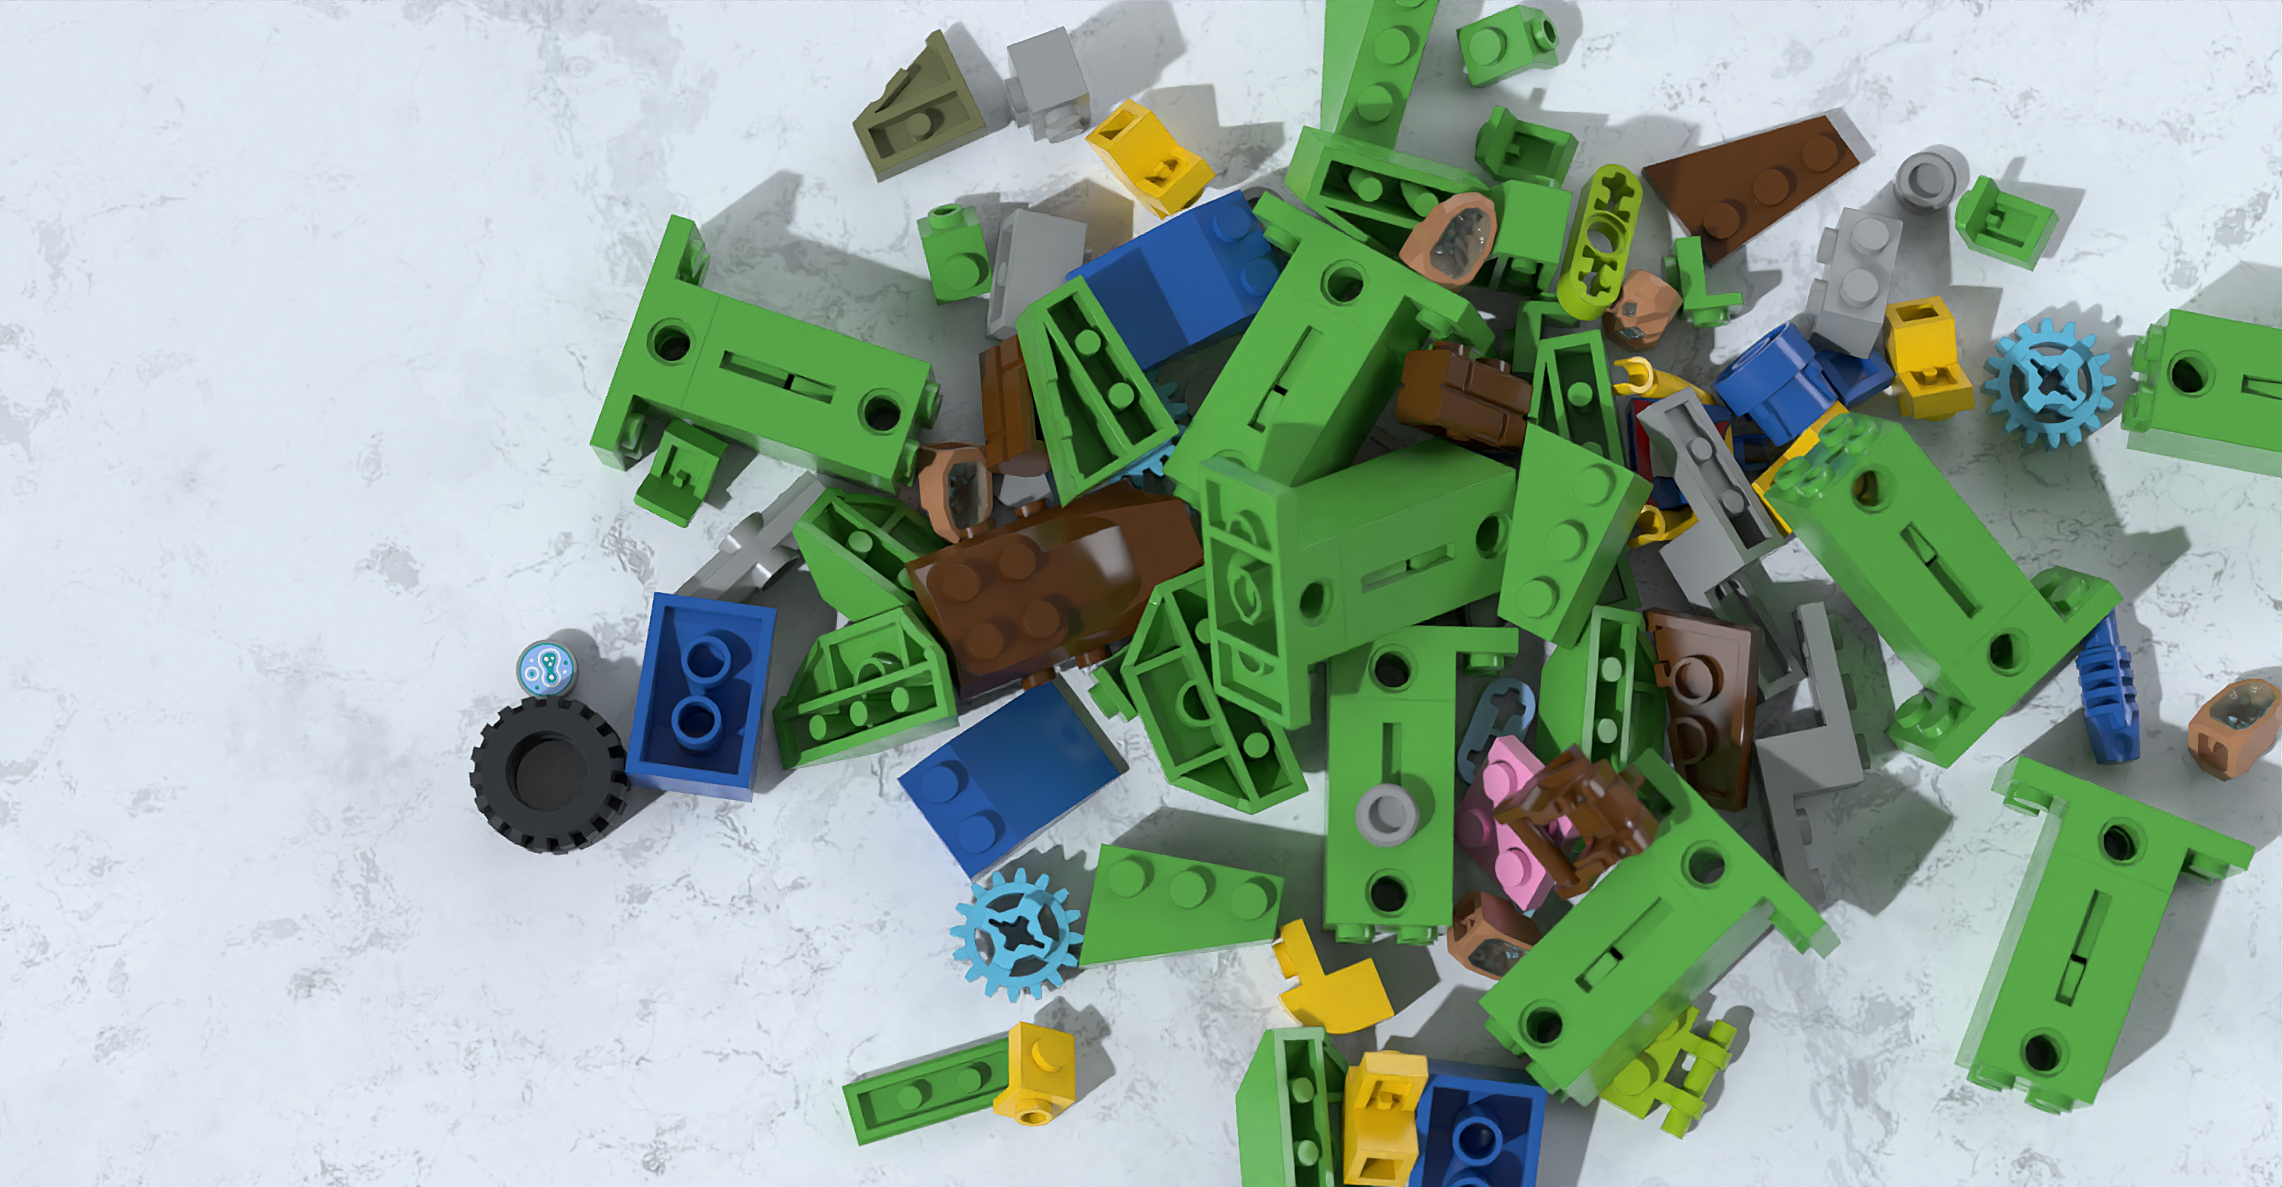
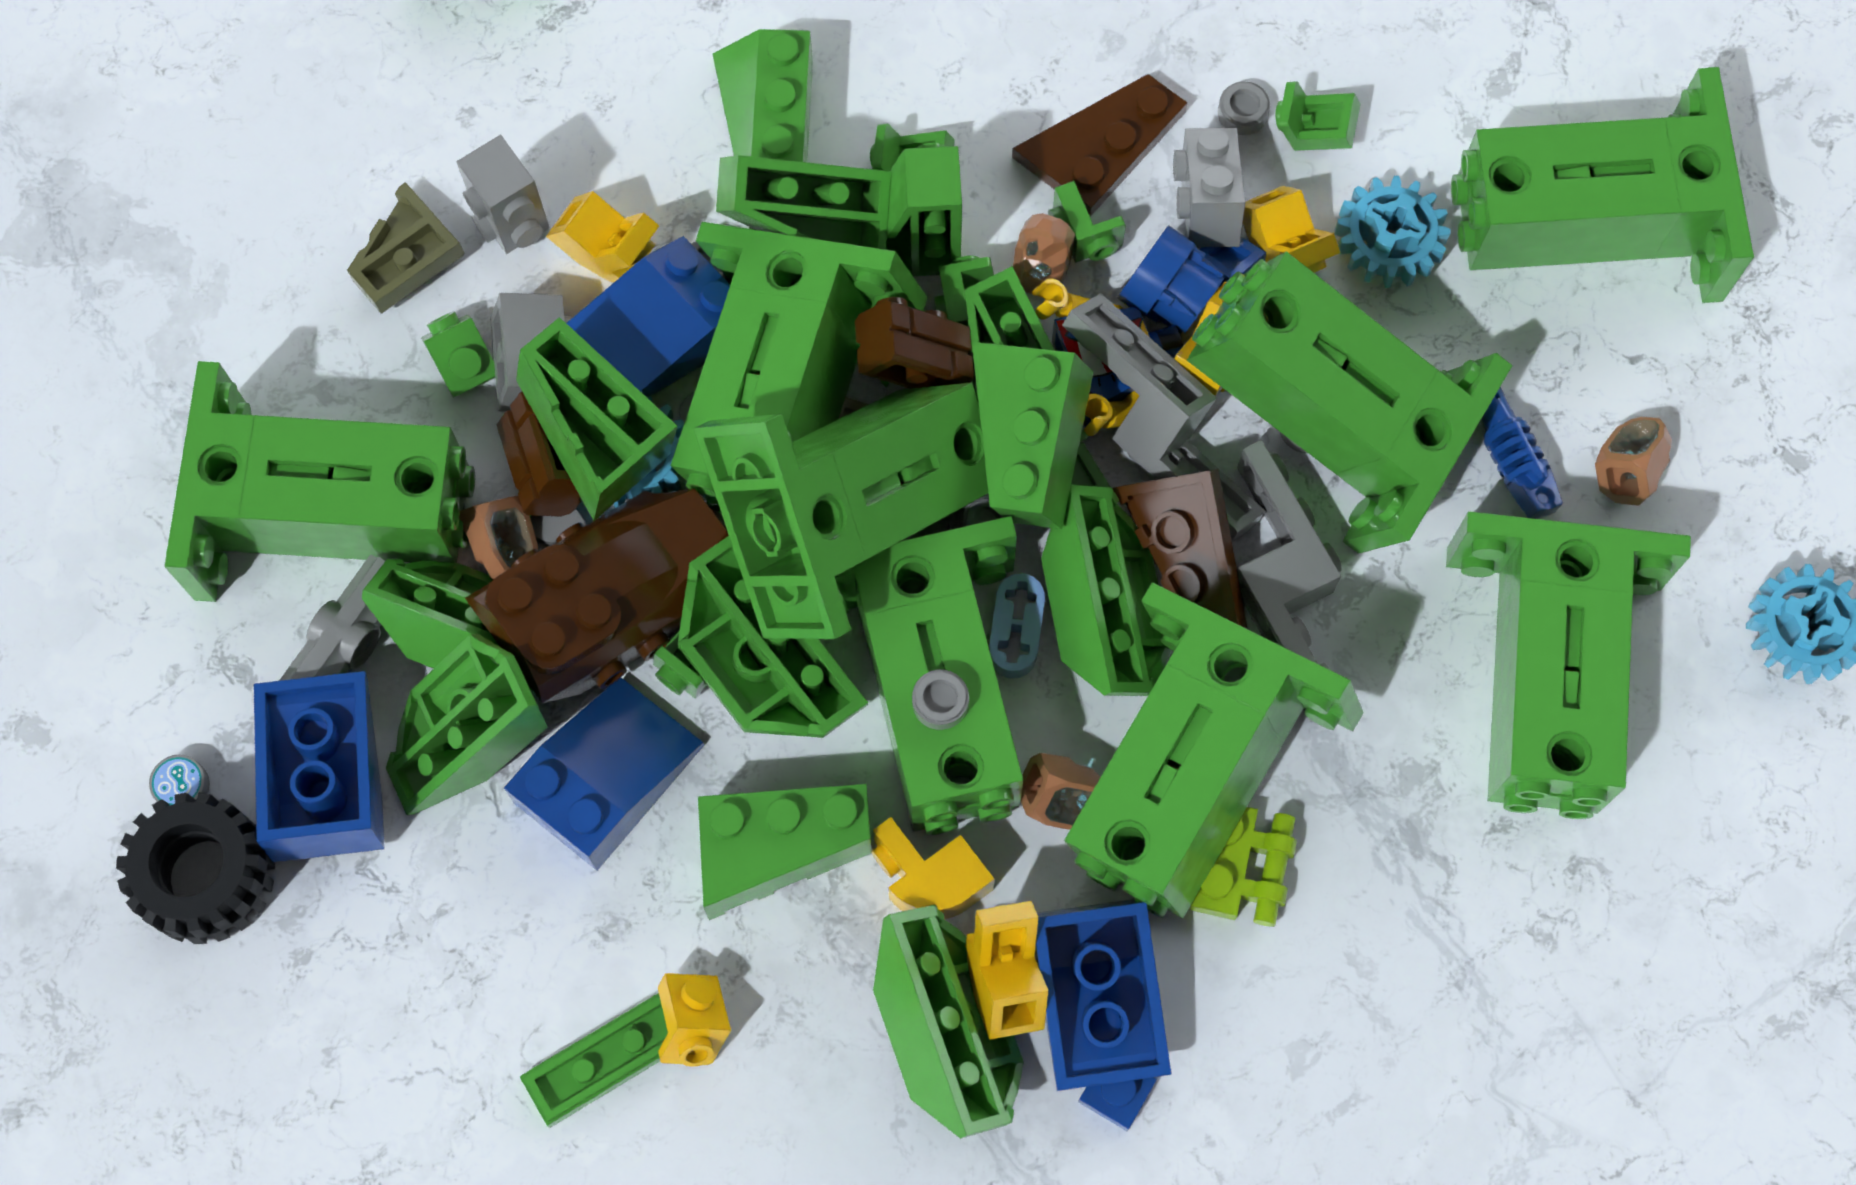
camera: 15 degrees left, 10 degrees down
(681, 473) = (261, 583): bright green bracket -> none
(1028, 910) = (641, 924): medium azure gear -> none
(1452, 240) = (868, 209): rock -> none
(1496, 845) = (1058, 685): bright pink plate -> none
(1508, 45) = (876, 82): bright green bracket -> none
(1583, 258) = (983, 220): lime beam -> none
(1595, 802) = (1124, 639): reddish brown piece -> none

